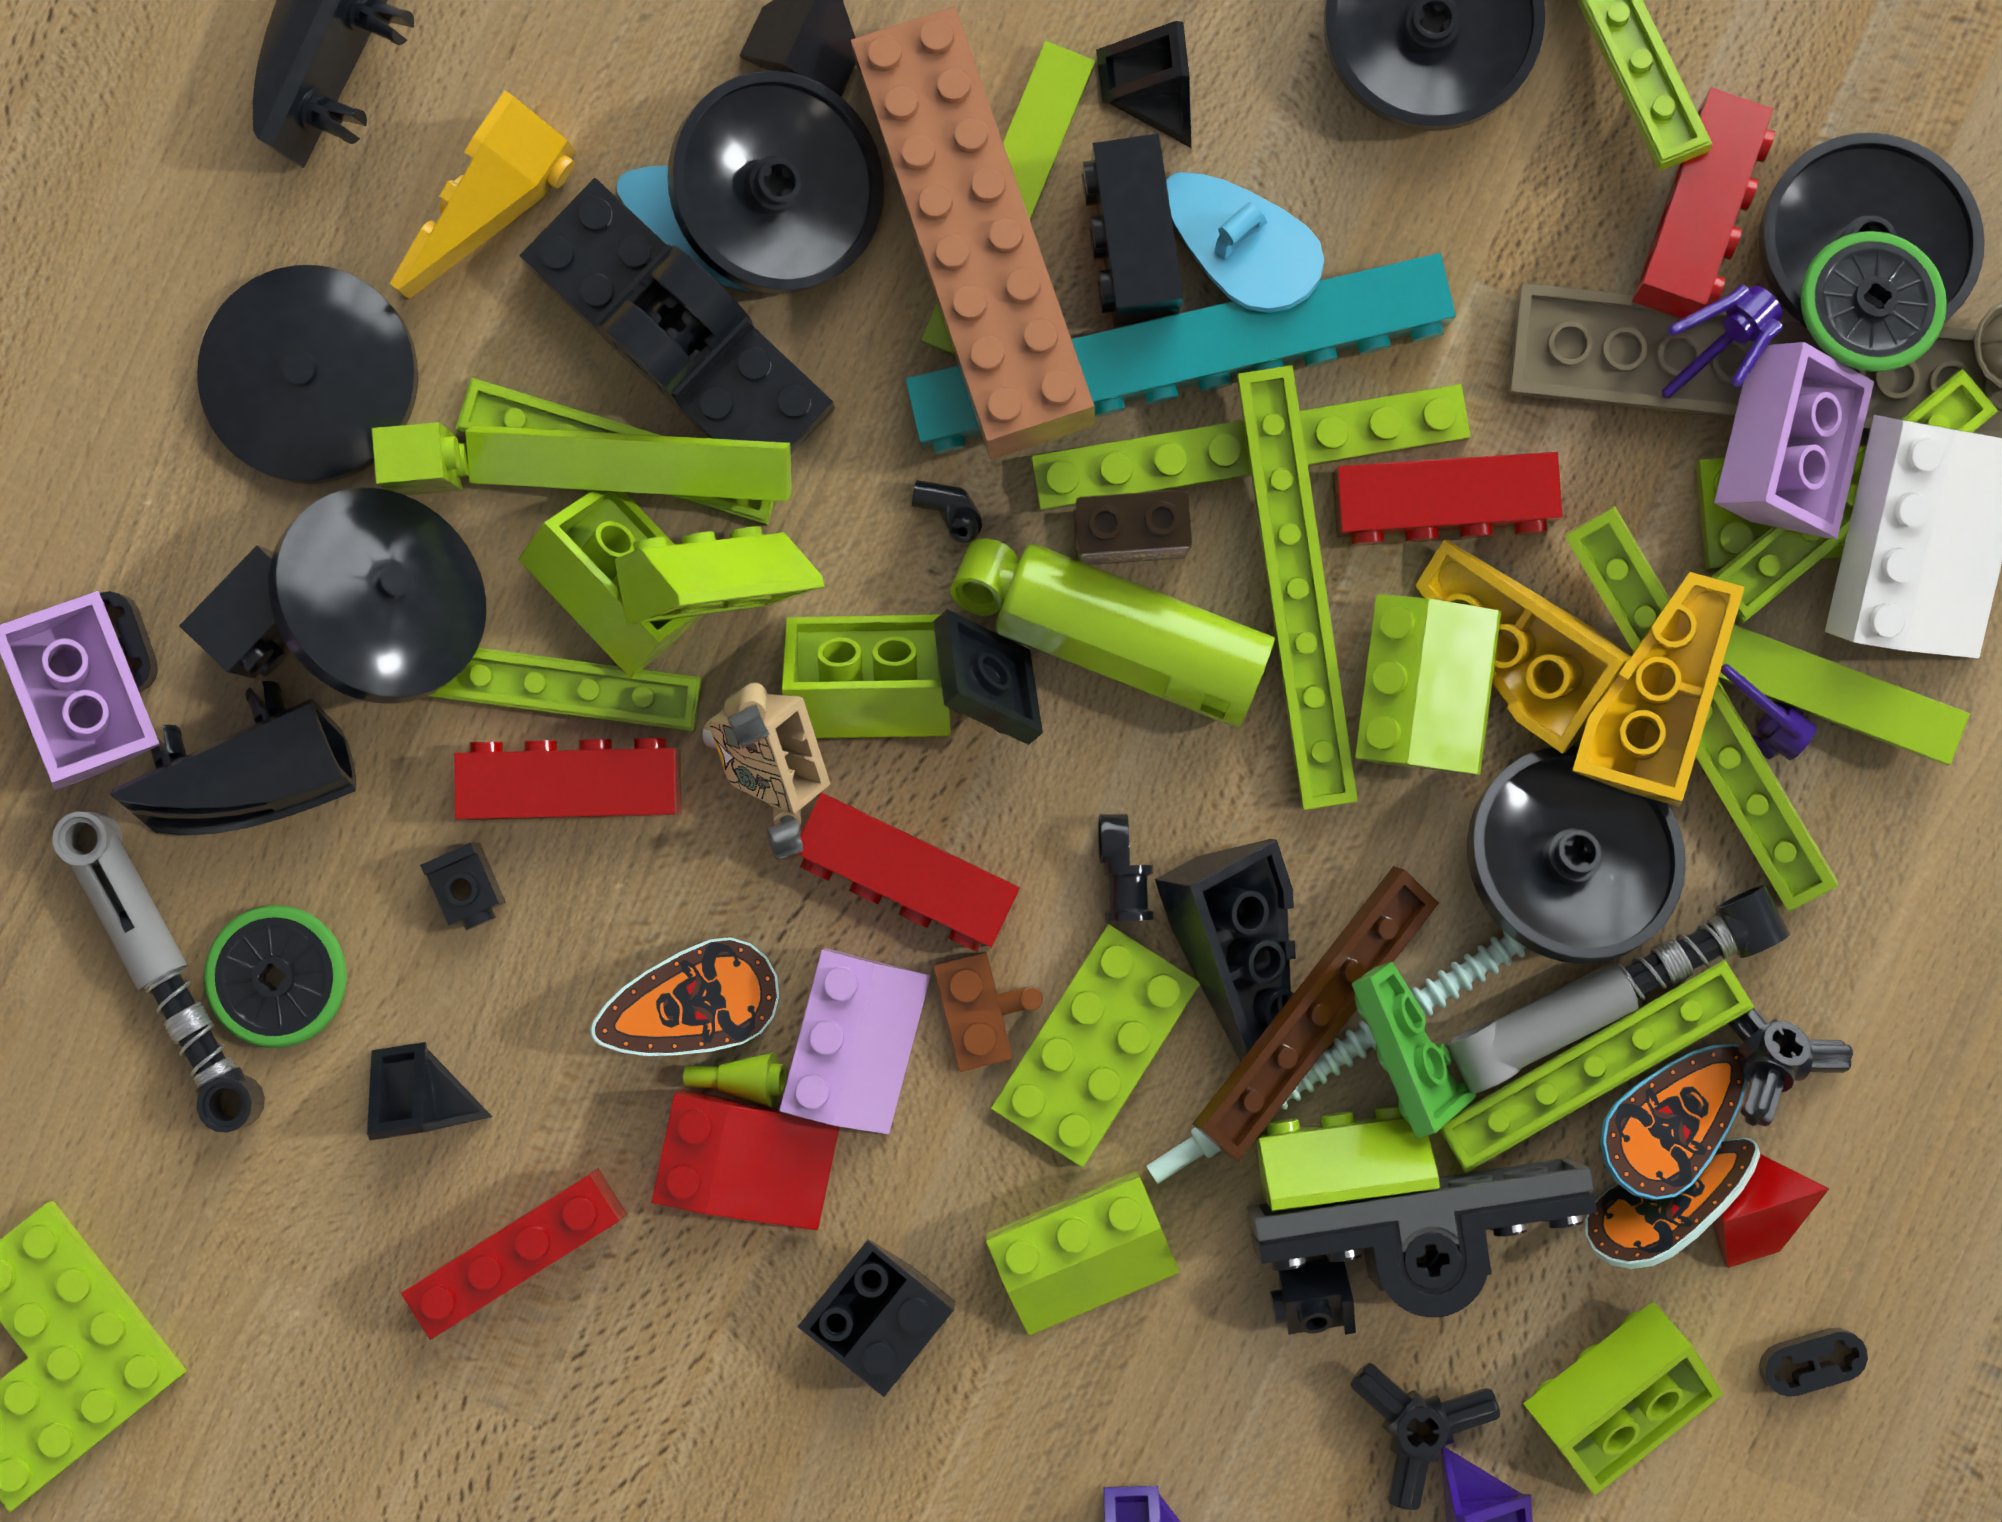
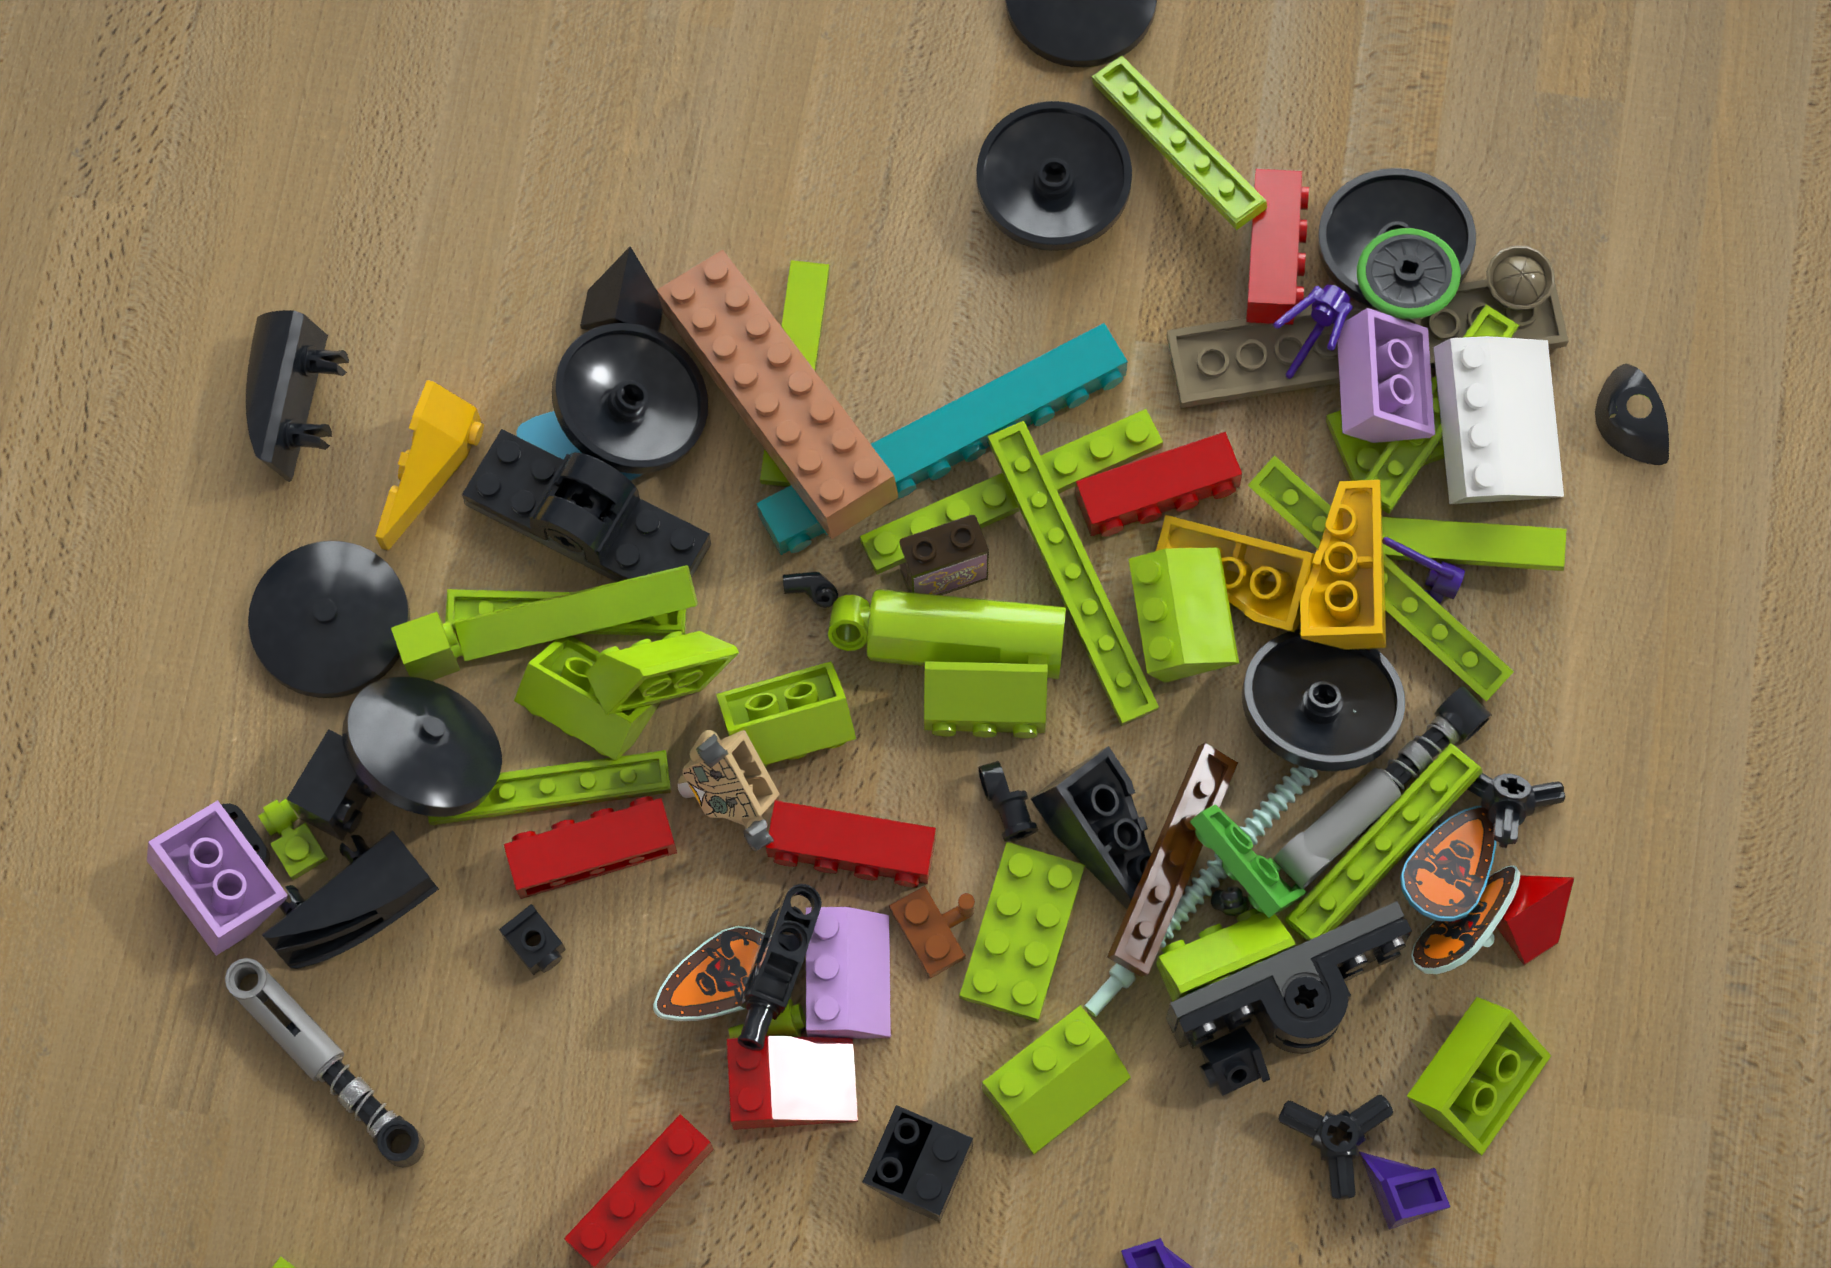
camera: 25 degrees left, 15 degrees down
(192, 675) = (297, 847): none -> lime plate
(246, 953) = (436, 1054): black wheel -> none
(415, 1094) = (537, 1102): black slope -> none
(750, 1031) = (777, 965): none -> black piece
(987, 677) = (871, 687): black plate -> none
(1132, 230) = (886, 362): black brick -> none
(1133, 733) = (985, 698): none -> lime slope
(1150, 79) = (871, 265): black slope -> none
(1245, 242) = (967, 353): medium azure shield -> none
(1376, 1093) = (1231, 901): none -> black arm
(1817, 1374) = (1602, 1005): black beam -> none

